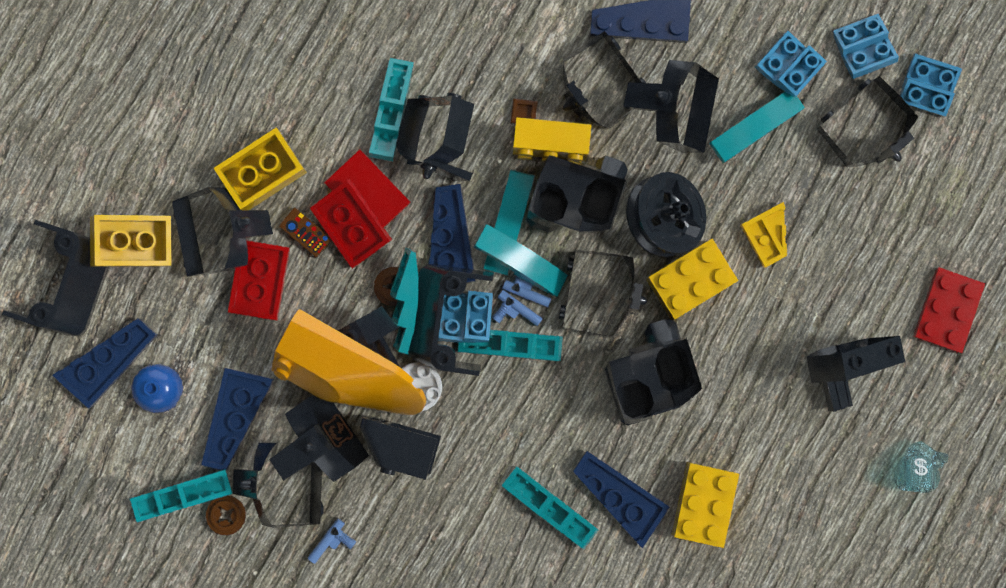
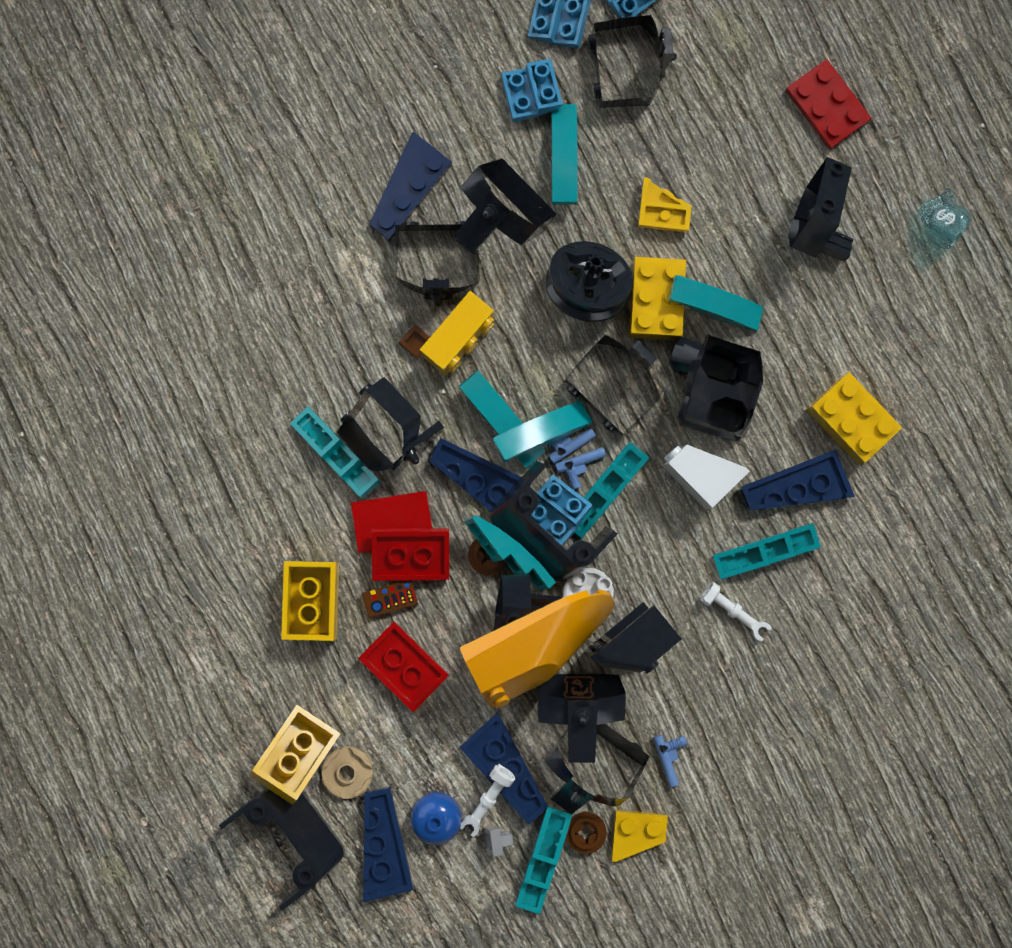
camera: 60 degrees left, 0 degrees up
(160, 293) = (347, 757): none -> tan tile
(171, 448) = (496, 840): none -> light grey tile
(223, 418) = (502, 778): none -> white piece
(244, 225) = (349, 645): black piece -> none
(253, 556) = (637, 832): none -> yellow wing
(483, 513) = (712, 593): none -> white piece
(574, 412) = (703, 474): none -> white slope
(577, 195) = (521, 344): black piece -> none
(720, 329) = (716, 303): none -> teal slope

